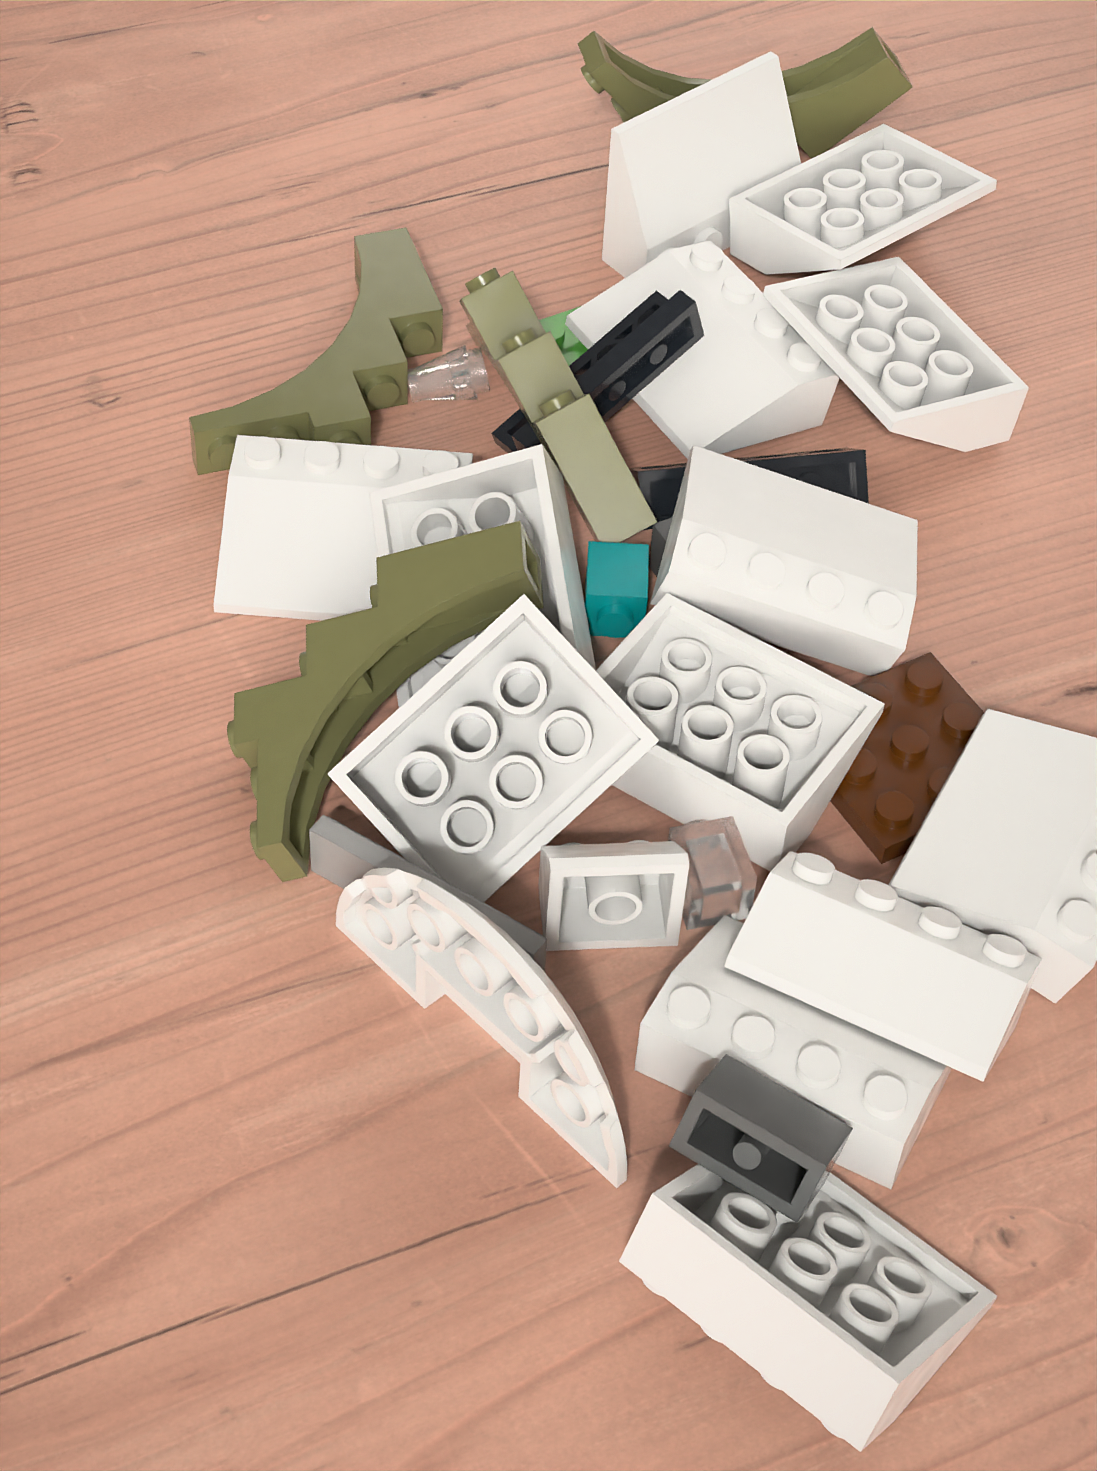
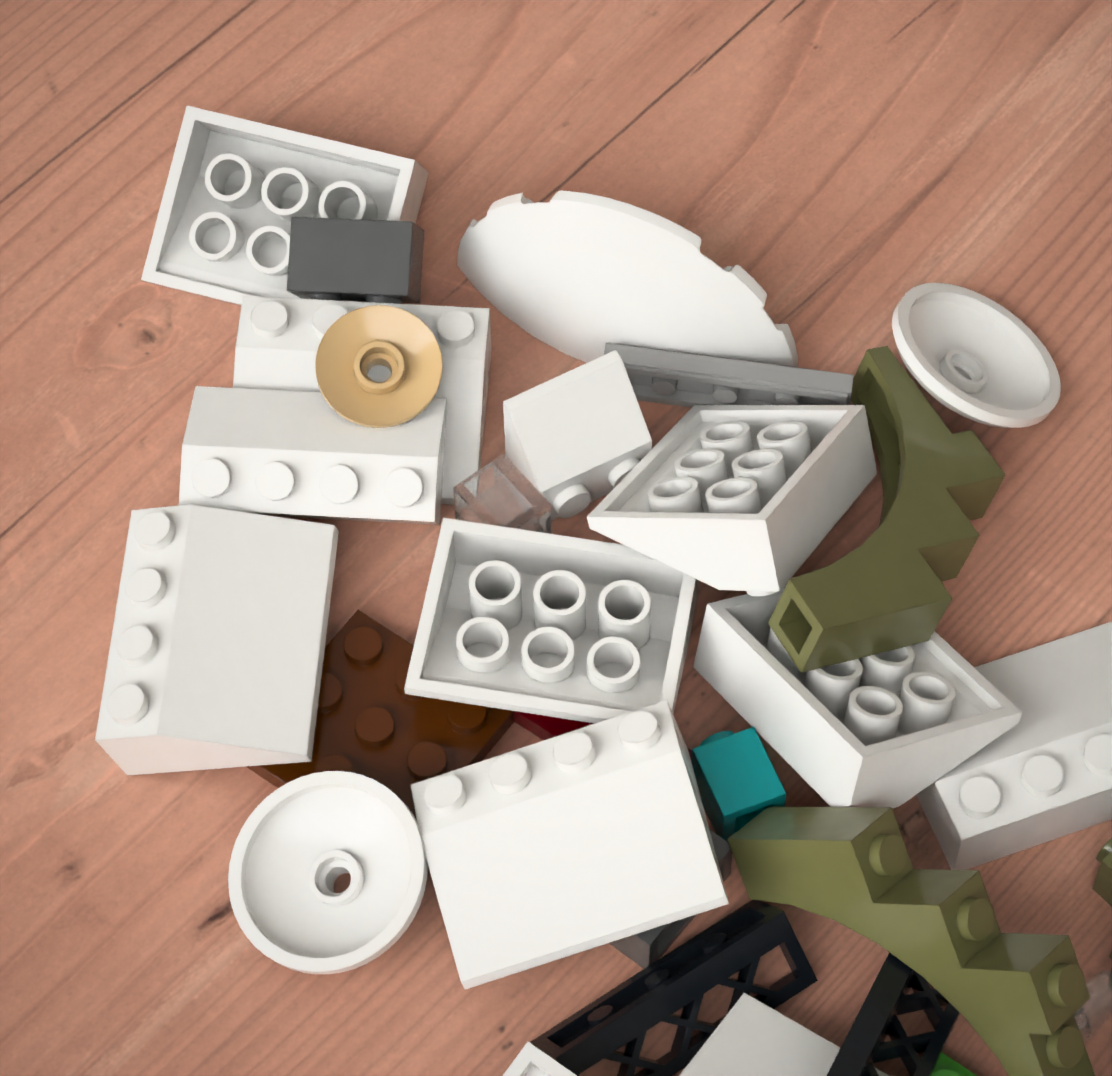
camera: 160 degrees right, 10 degrees up
(178, 809) = (975, 356): none -> white dish
(794, 972) = (374, 338): none -> tan dish
(998, 629) = (298, 848): none -> white dish

